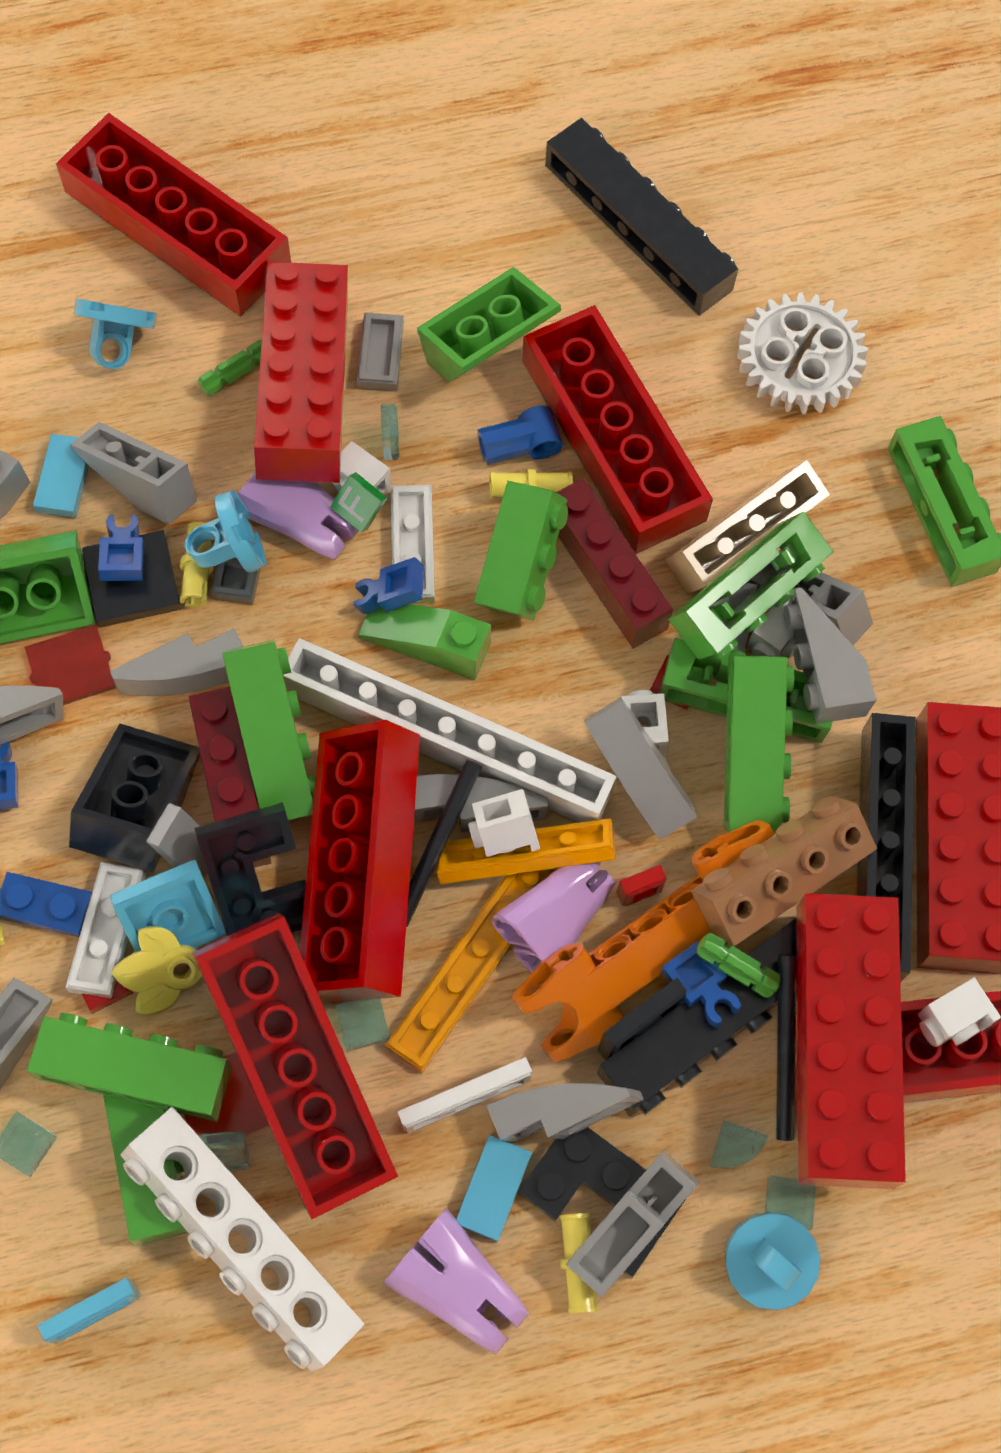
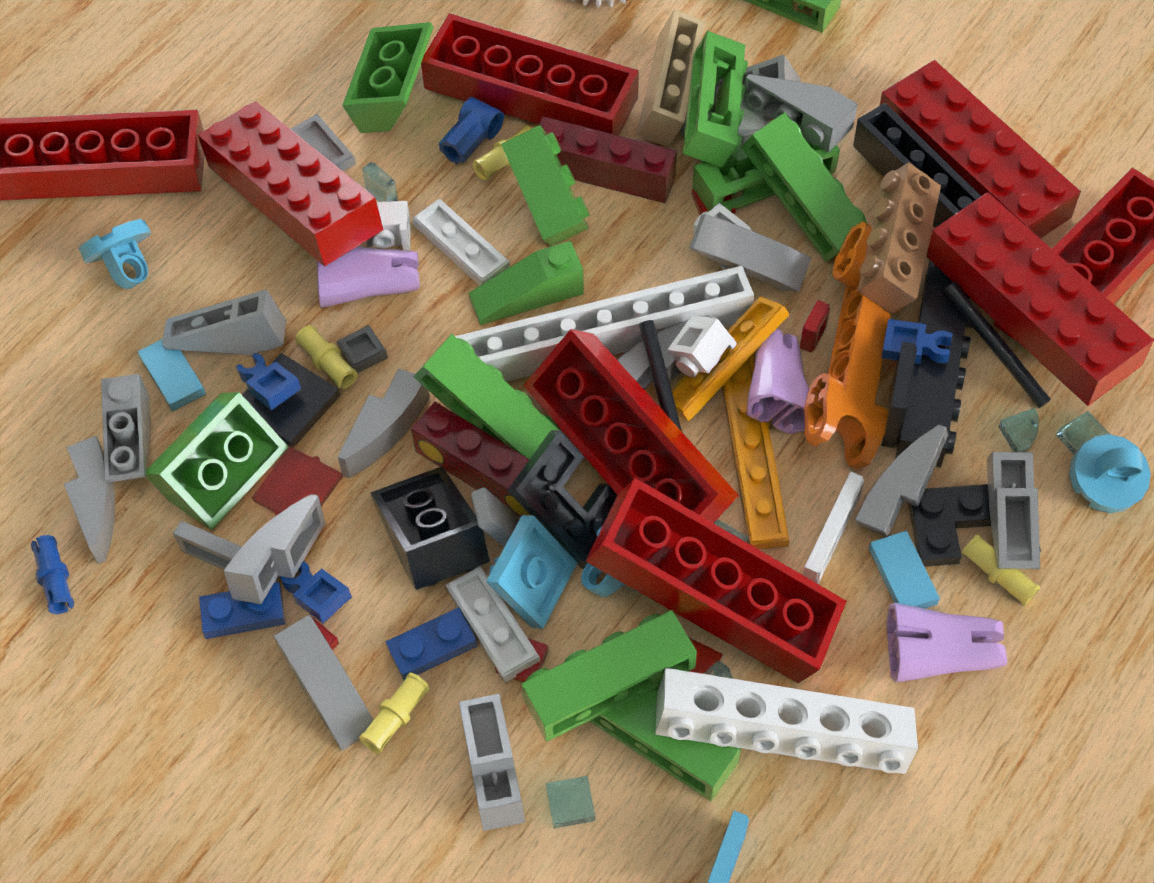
camera: 35 degrees left, 10 degrees down
(152, 970) = (554, 617): light yellow plate -> none
(231, 369) = (229, 224): bright green axle -> none
(231, 535) = (340, 310): medium azure tile -> none
(358, 502) = (407, 233): tile -> none
(396, 587) = (481, 269): blue plate -> none
(738, 965) = (927, 312): bright green axle -> none
(957, 1015) = (1083, 235): white brick -> none

